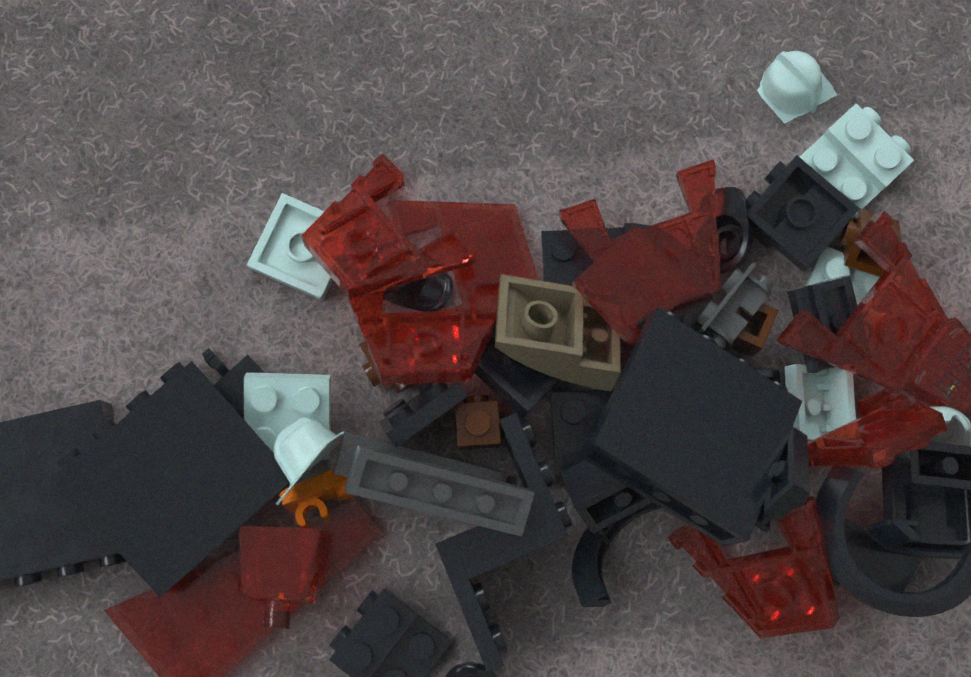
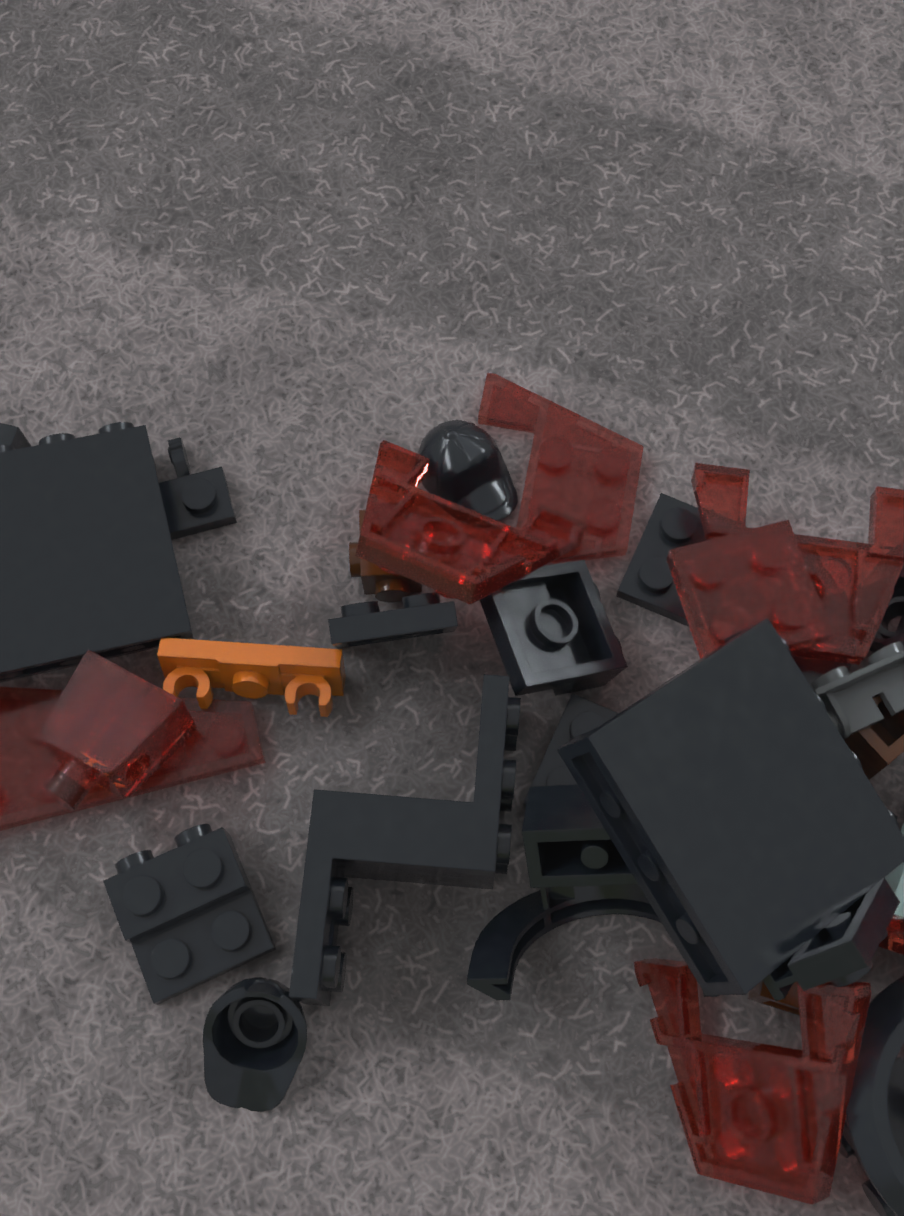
camera: 30 degrees right, 10 degrees down
(280, 399) = (231, 557): light aqua plate -> none
(282, 252) = (356, 376): light aqua plate -> none
(302, 448) = (216, 600): light aqua piece -> none
(365, 247) = (431, 404): clear red wing -> none
(432, 484) = (353, 713): dark grey fence -> none
(477, 423) = (454, 682): reddish brown brick -> none
(556, 332) = (613, 607): dark tan slope -> none

